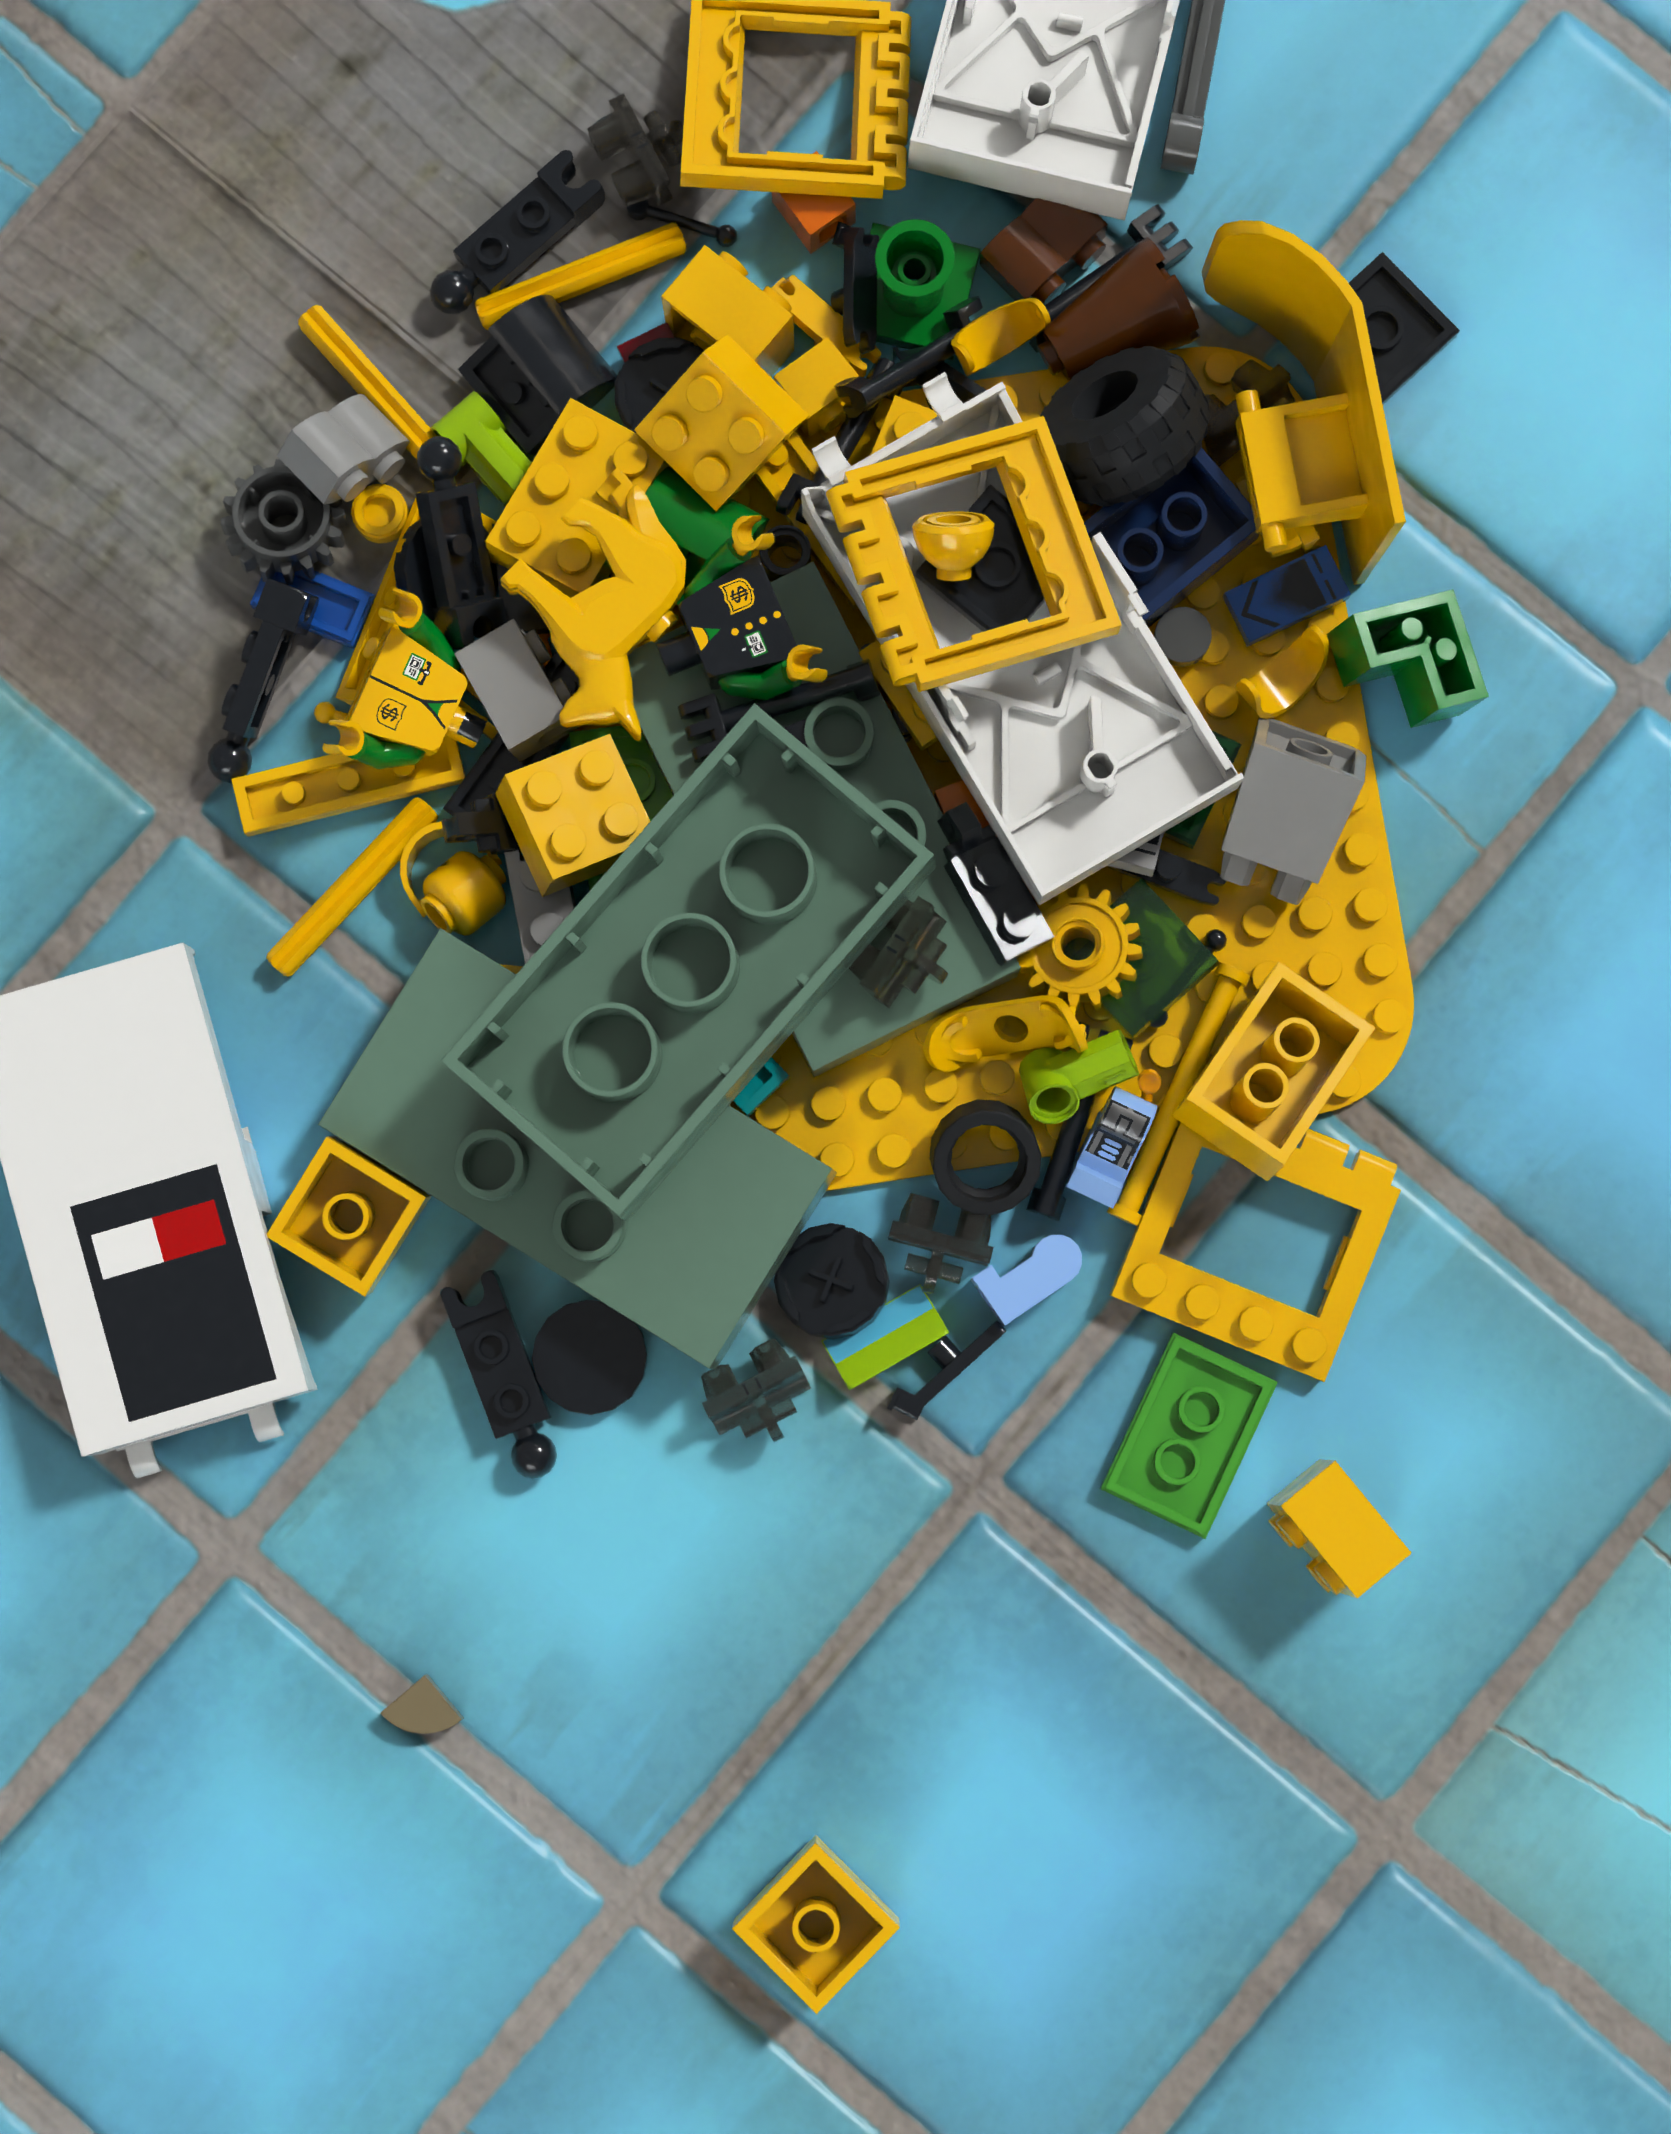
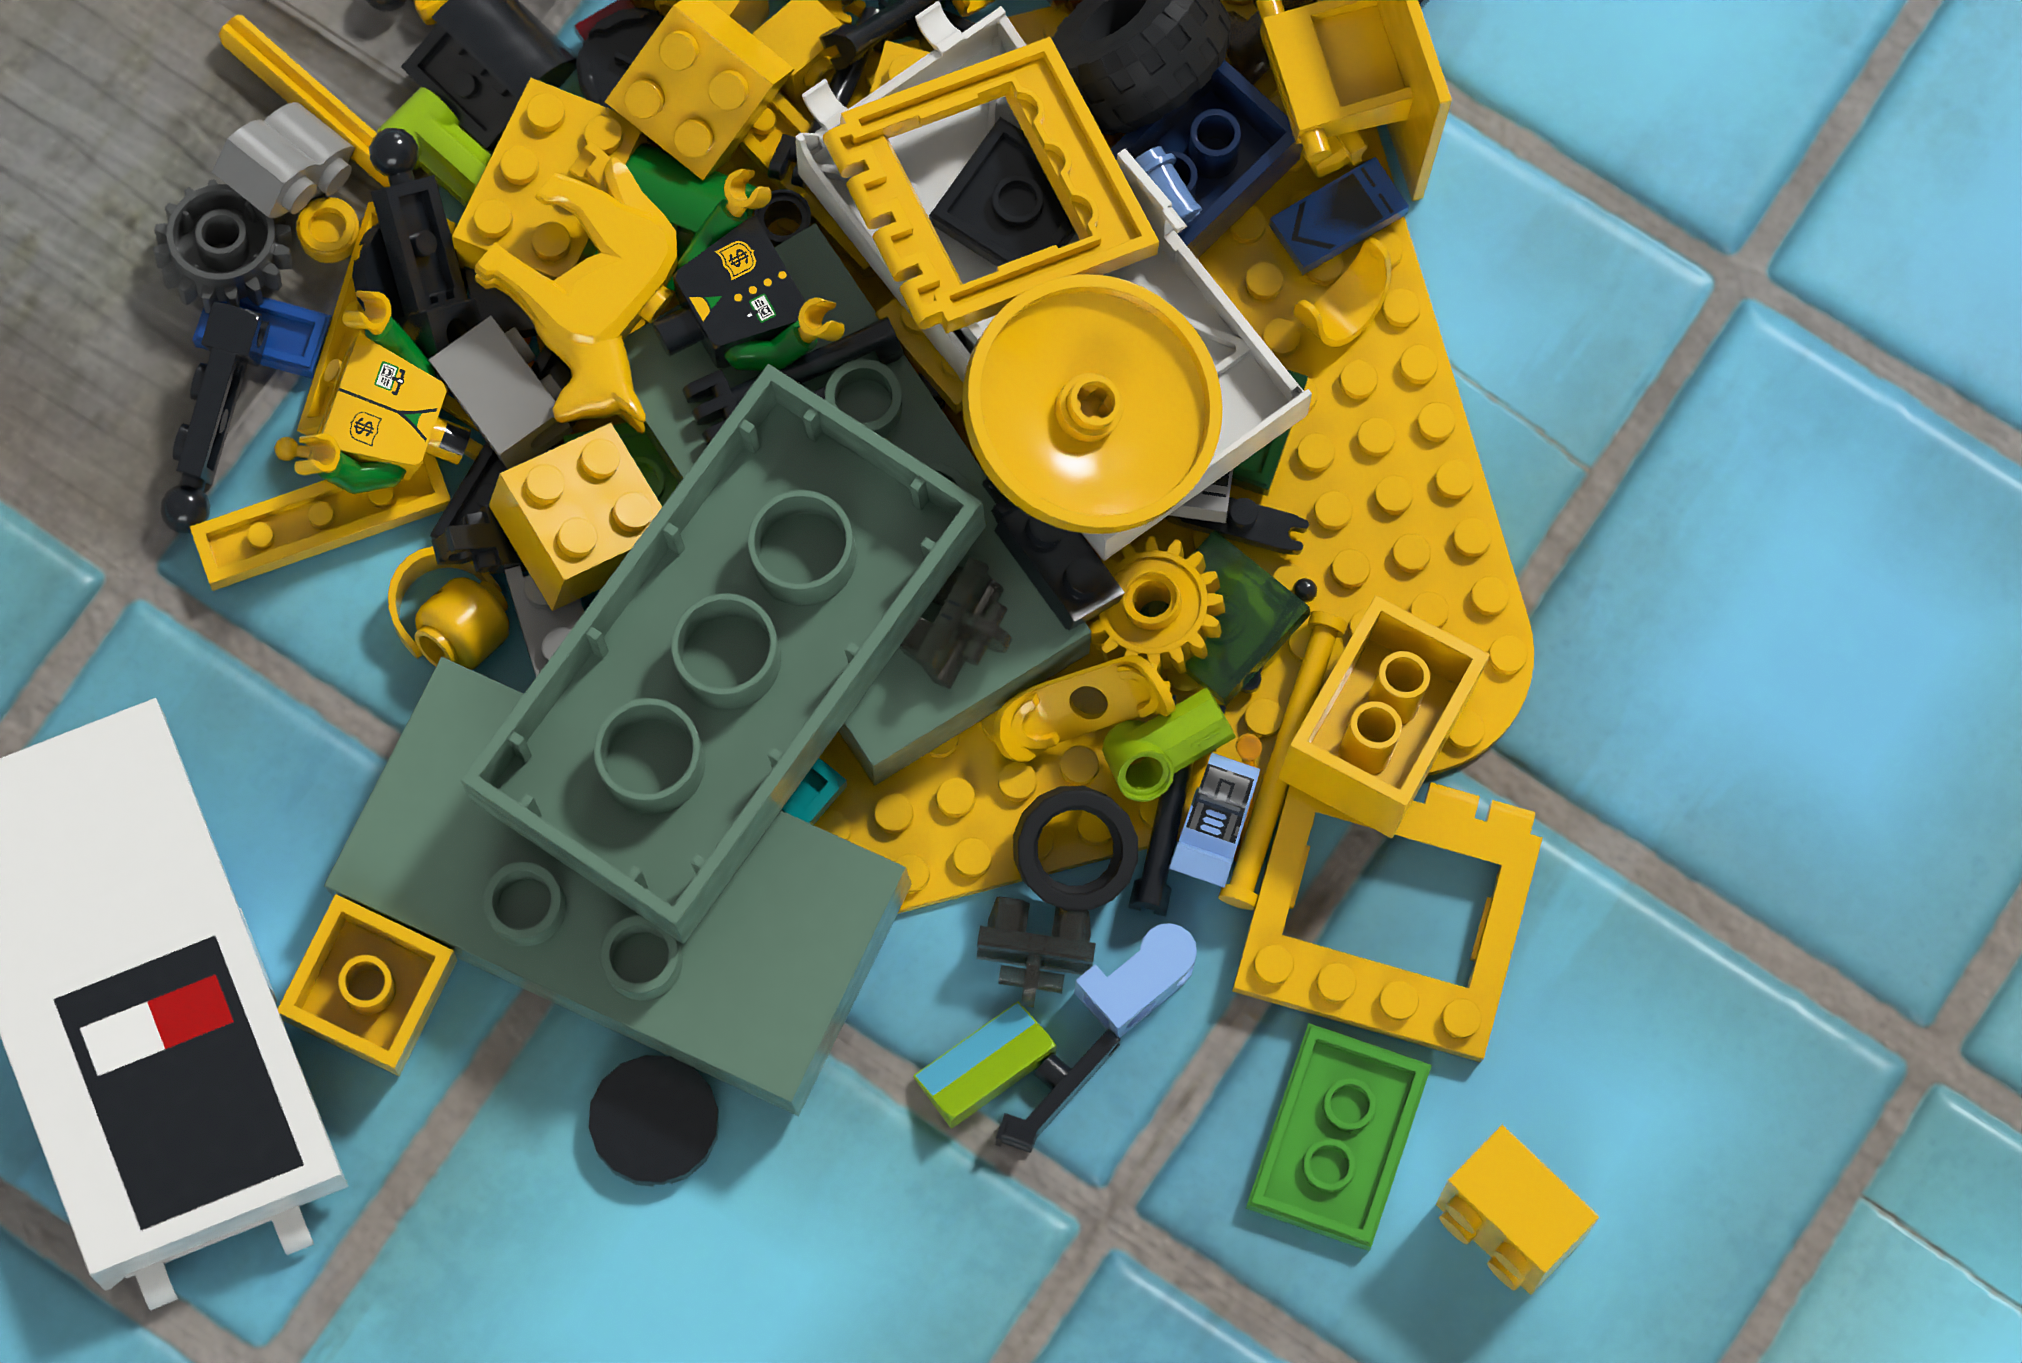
camera: 10 degrees left, 10 degrees down
(349, 888) = (331, 636): yellow axle -> none
(503, 1374) = (557, 1148): black plate -> none
(759, 1400) = (848, 1143): clear smoke hips -> none
(832, 1281) = (919, 1007): black tile -> none
(953, 541) = (967, 177): yellow brick -> none
(1043, 773) = (1092, 404): none -> yellow dish
(1132, 556) = (1162, 172): none -> medium blue pin
(1183, 636) = (1233, 266): dark grey tile -> none
(1290, 807) = (1367, 437): light grey hips -> none
(1422, 647) = (1491, 252): green brick -> none

